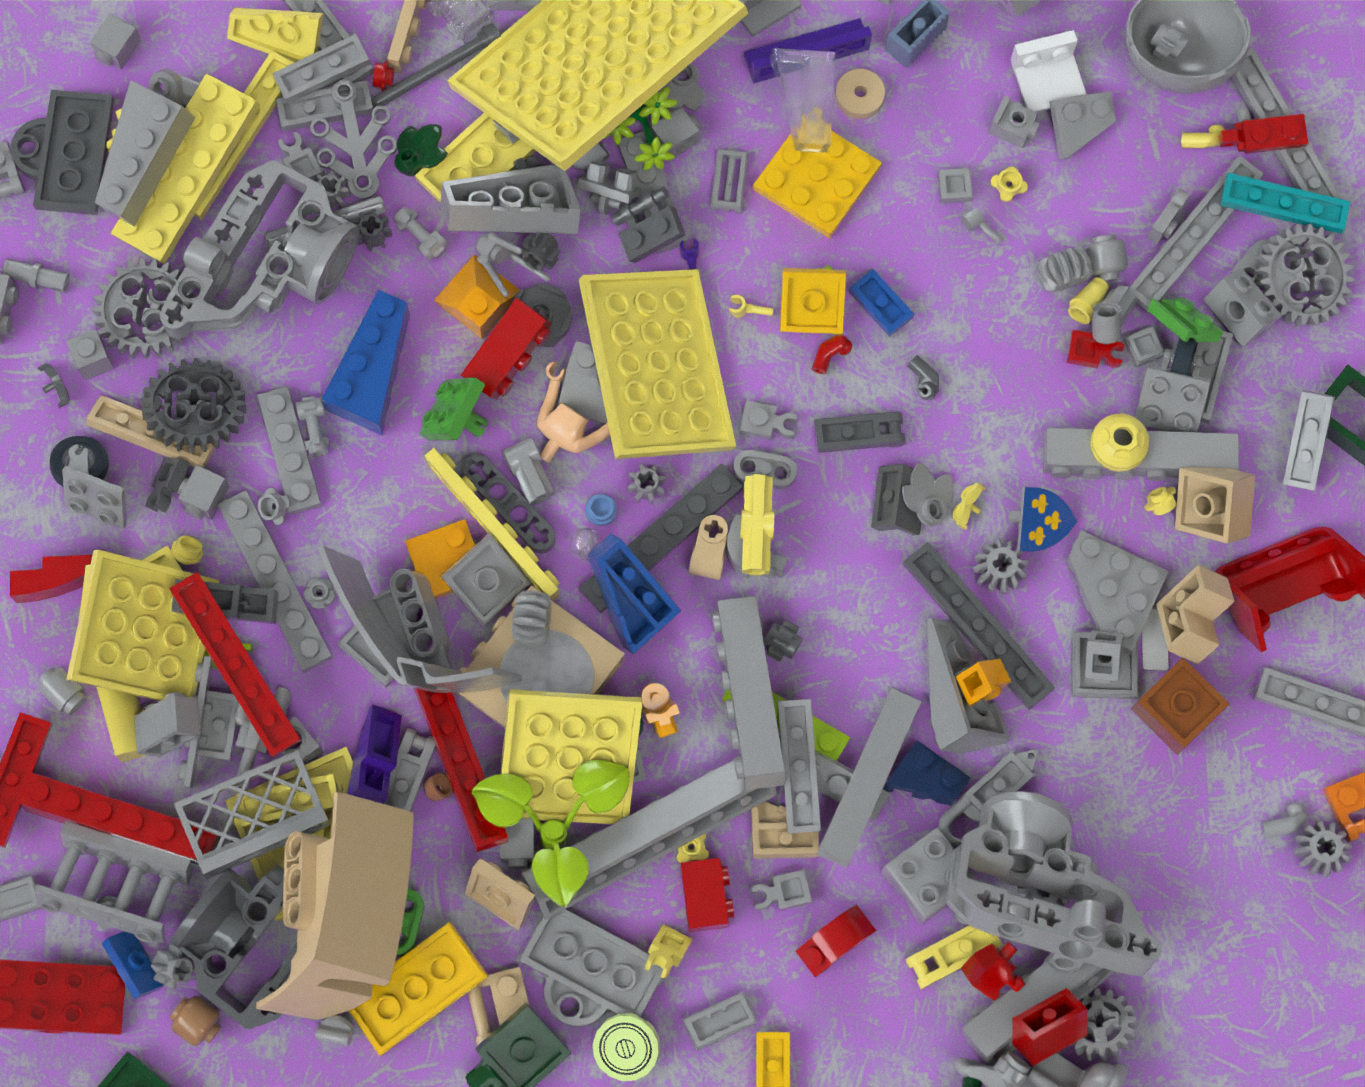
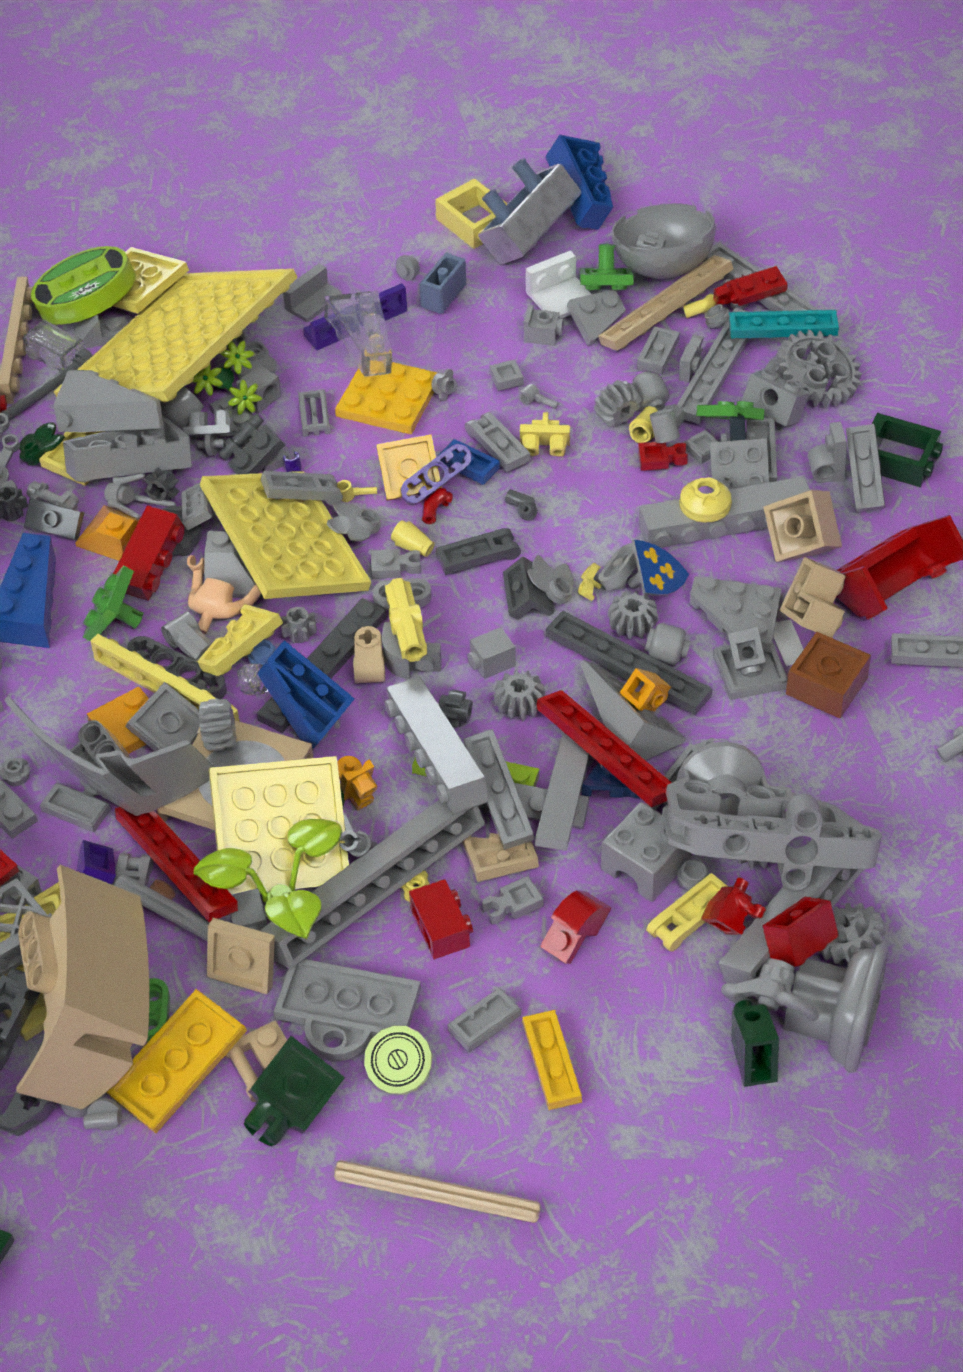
camera: 10 degrees left, 25 degrees down
(416, 265) = (54, 519): none -> dark grey plate
(439, 812) = (165, 907): none -> light grey axle
(486, 141) = (100, 404): none -> light grey wedge
(568, 301) = (195, 507): none -> light grey plate
(585, 490) = (240, 640): none -> light yellow wing
(643, 792) = (356, 842): none -> light grey axle
(667, 949) = (417, 969): light yellow plate -> none
(688, 302) = (301, 486): none -> light grey plate
(732, 360) = (354, 521): none -> light grey plate
(793, 397) = (409, 537): none -> light yellow cone
(839, 577) = (492, 653): none -> light grey brick
(841, 638) = (518, 694): none -> light grey gear
(863, 317) = (456, 467): none -> beam
(864, 81) = (408, 336): tan piece -> none
(882, 182) = (444, 384): none -> light grey plate
(920, 281) = (498, 441): none -> light grey plate
(922, 743) = (605, 747): none -> red plate
(986, 296) = (545, 433): none -> light yellow hips
(1004, 497) = (618, 568): none -> light grey plate
(1009, 175) = (551, 365): light yellow plate -> none
(1025, 617) = (667, 643): none -> light grey head
(1106, 68) = (606, 273): none -> bright green plate
(1134, 193) = (658, 350): none -> light grey plate
(1161, 500) = (756, 540): light yellow plate -> none
(1163, 128) = (665, 303): none -> tan plate
(1216, 161) = (717, 316): none -> light grey plate
(1274, 410) = (829, 459): none -> light grey plate

